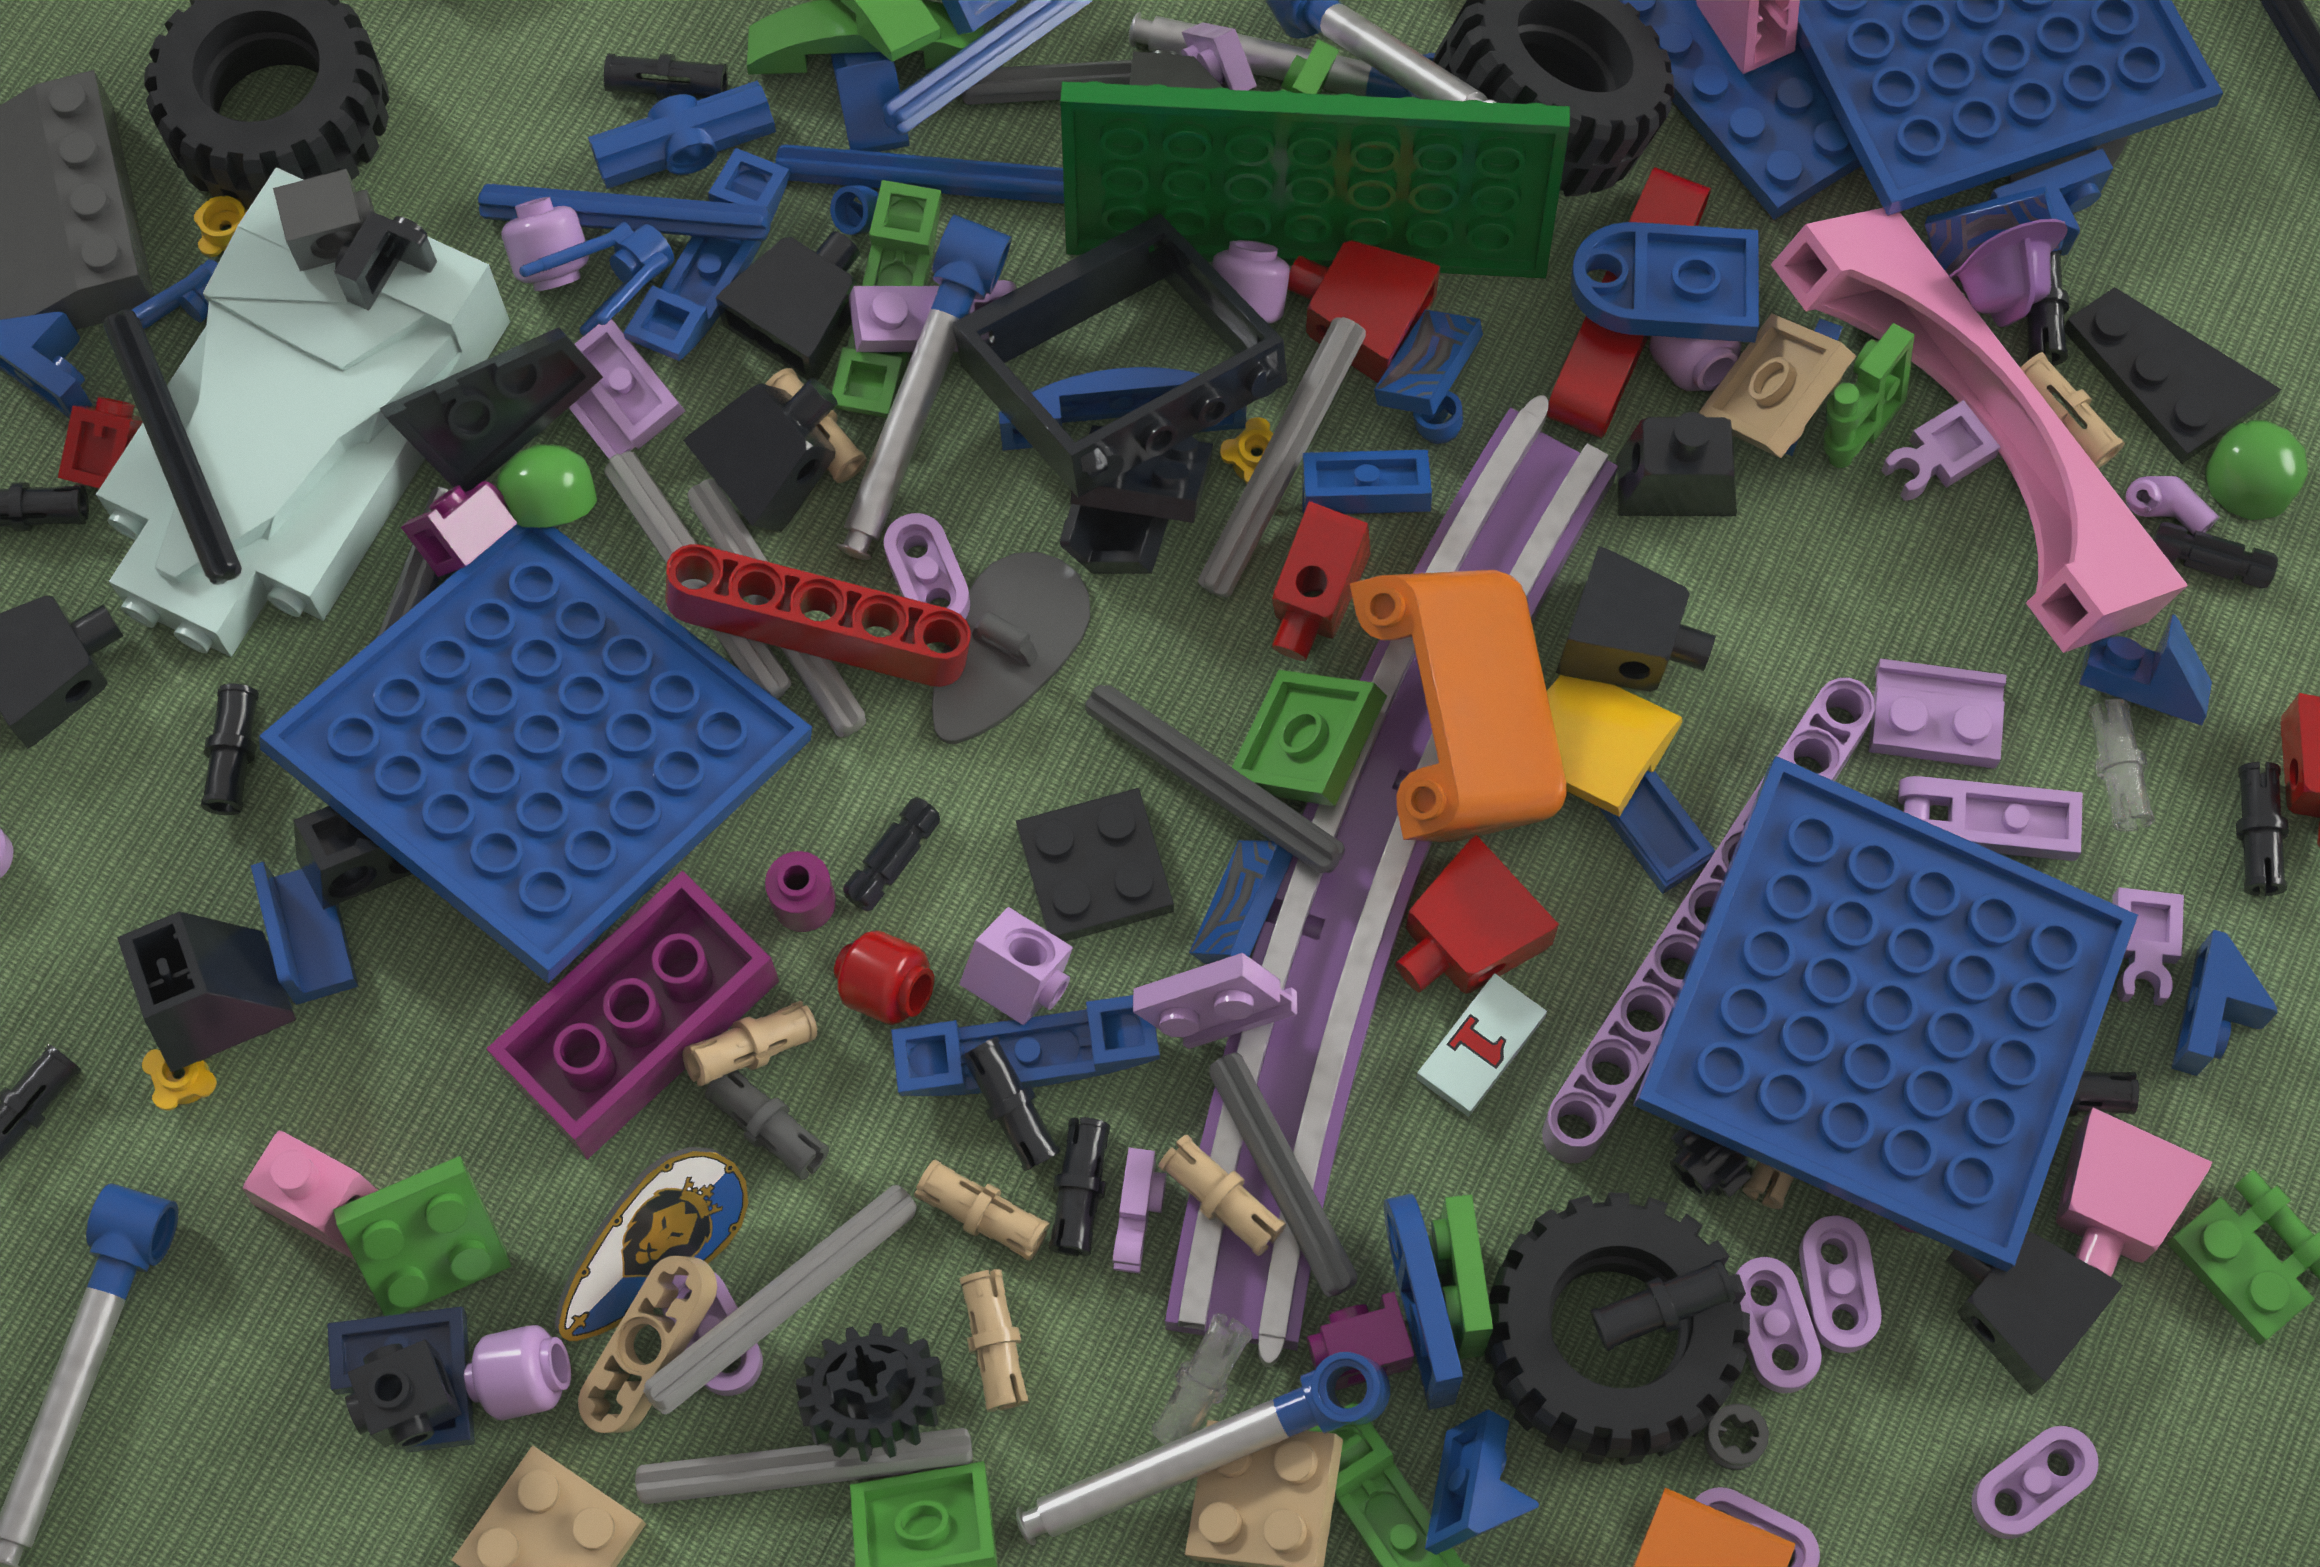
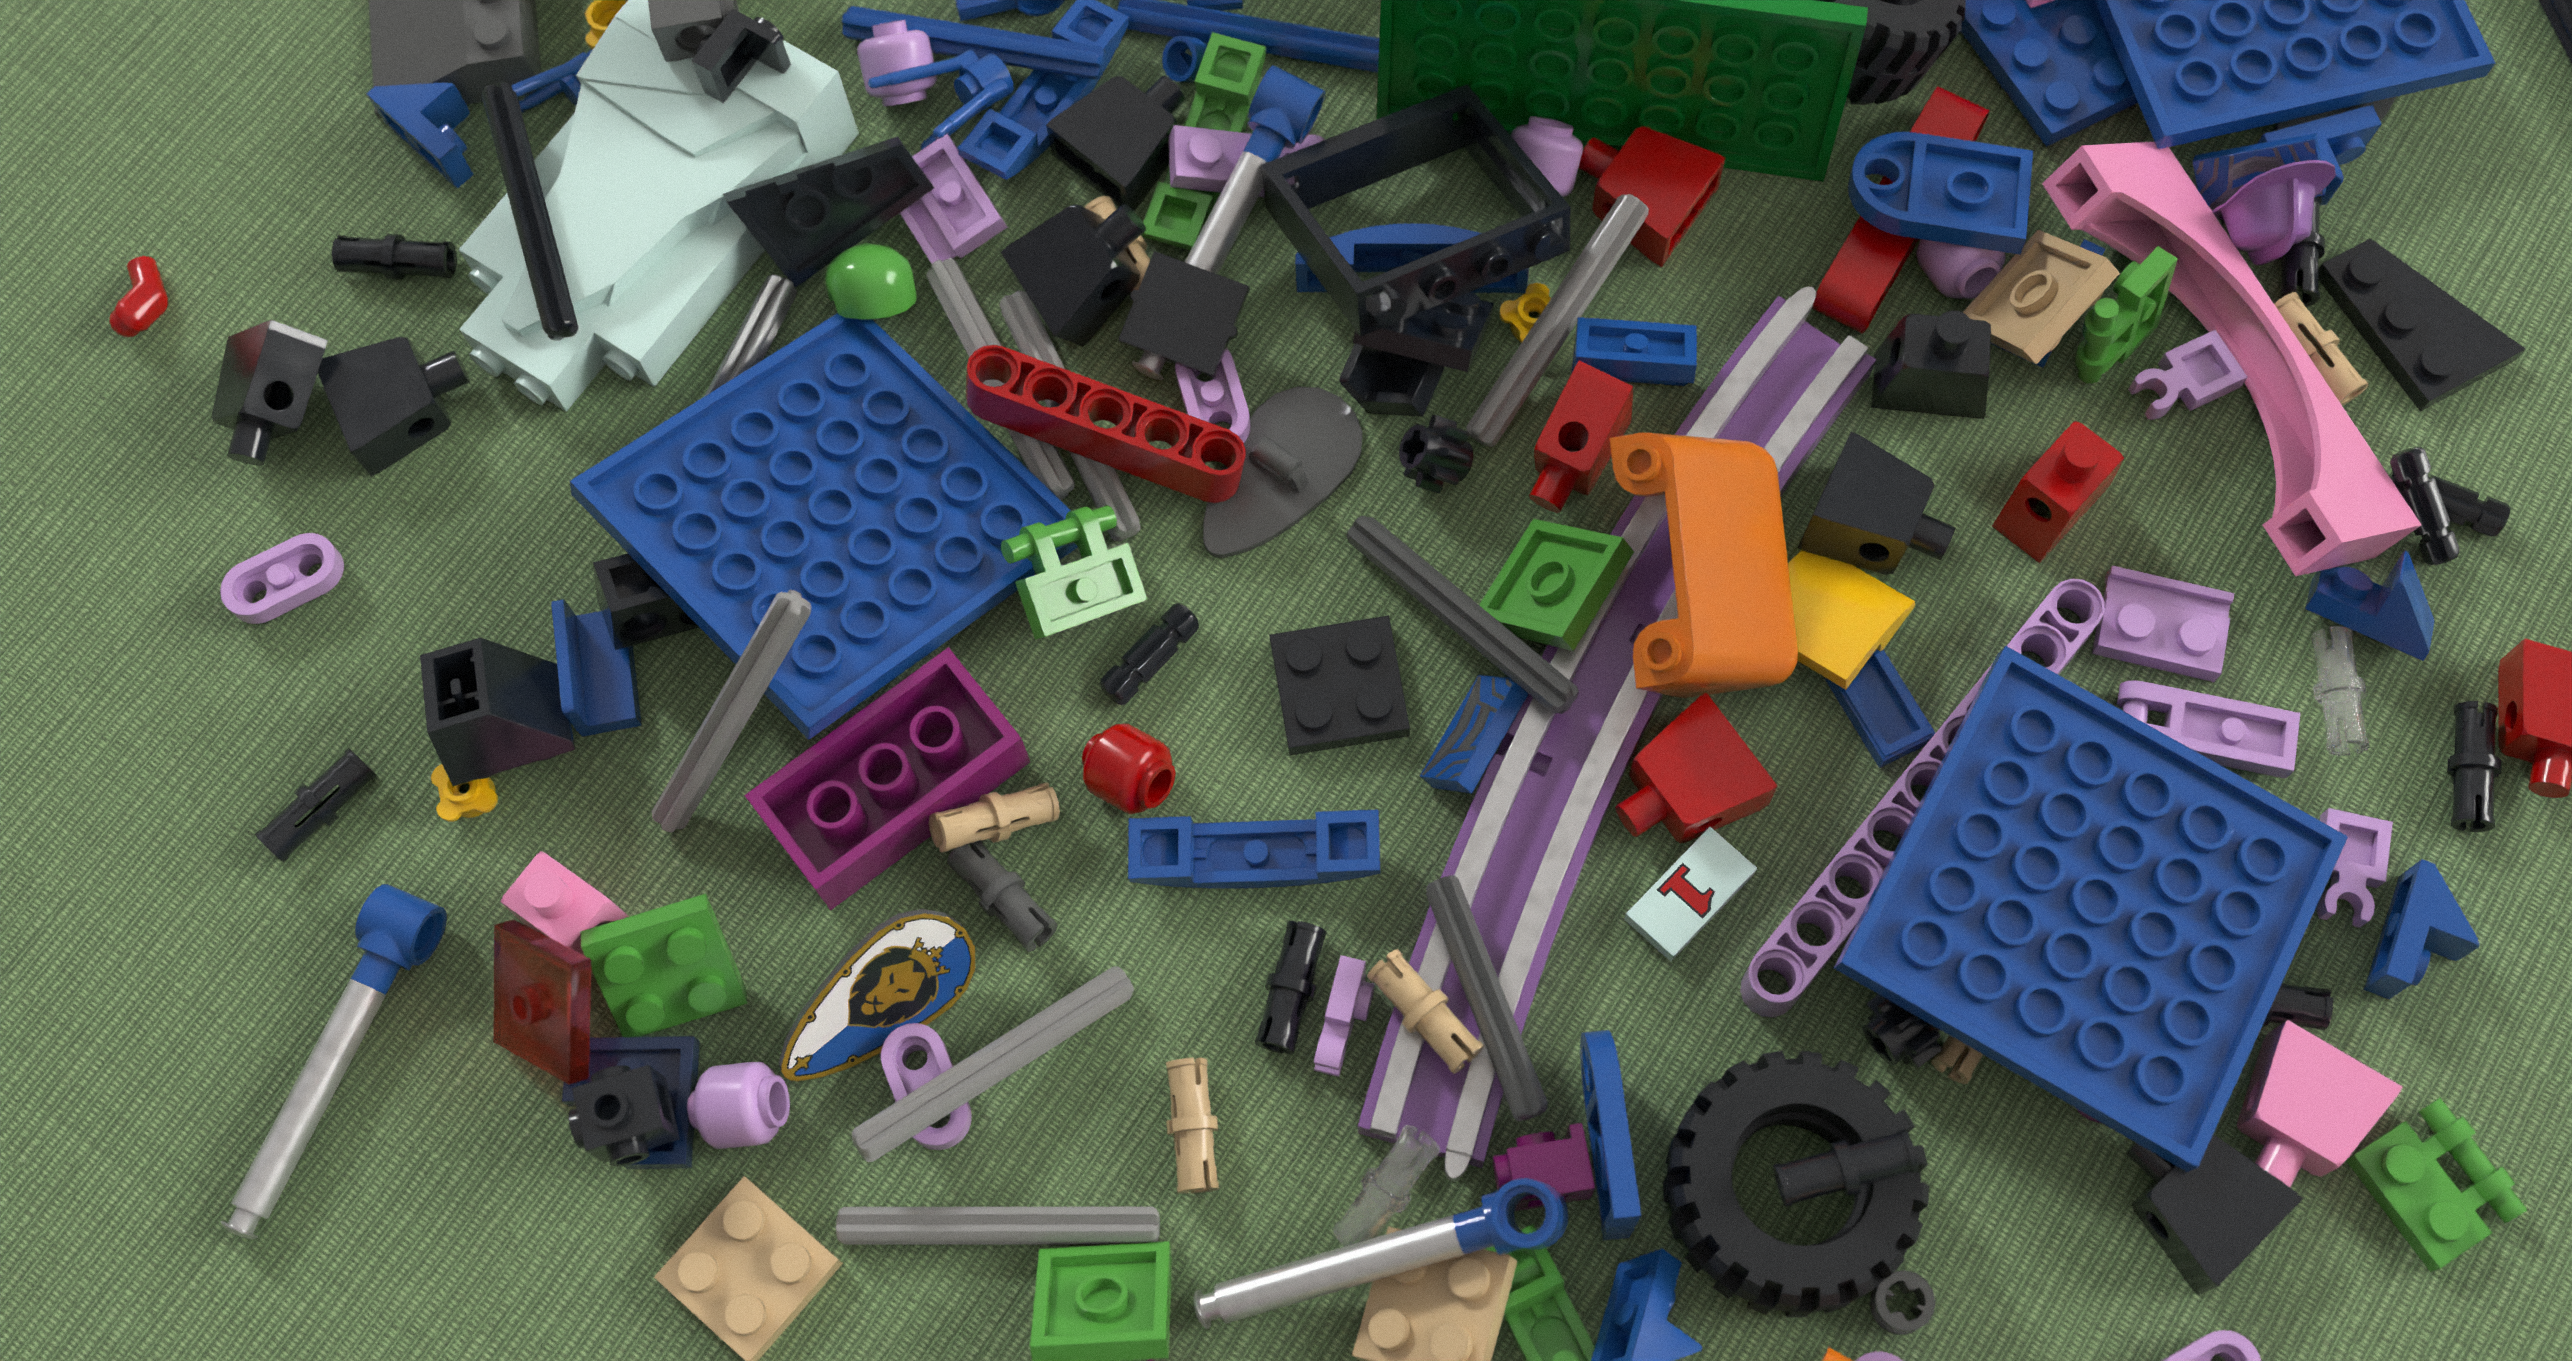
camera: 10 degrees right, 0 degrees up
(97, 440) = (467, 202): red bracket -> none
(229, 749) = (551, 495): black pin -> none
(298, 1287) = (542, 1001): none -> clear red plate
(459, 527) = (785, 310): brick -> none
(462, 962) = (731, 710): none -> light grey axle
(655, 1293) = (835, 1100): tan beam -> none
(803, 908) = (1058, 679): magenta brick -> none
(812, 794) = (1080, 589): none -> plate
(838, 1397) = (1037, 1174): black gear -> none
(887, 489) = (1184, 314): none -> black piece
(982, 1210) = (1195, 999): tan pin -> none
(1010, 1103) = (1233, 901): black pin -> none
(1017, 967) = (1254, 771): lavender brick -> none
(1170, 611) = (1436, 454): none -> black gear
(1215, 1001) = (1438, 823): lavender plate -> none
(1428, 362) = (1705, 246): blue tile -> none
(1431, 426) = (1703, 293): blue hinge -> none
(1459, 1259) = (1649, 1099): bright green plate -> none
(1779, 1326) = (1955, 1198): lavender plate -> none
(1823, 576) = (2067, 481): none -> red torso
(1840, 1286) = (2021, 1166): lavender plate -> none
(2170, 498) = (2394, 435): lavender arm -> none
(2192, 563) = (2425, 501): none -> black axle
(2257, 470) = (2495, 423): bright green hair -> none

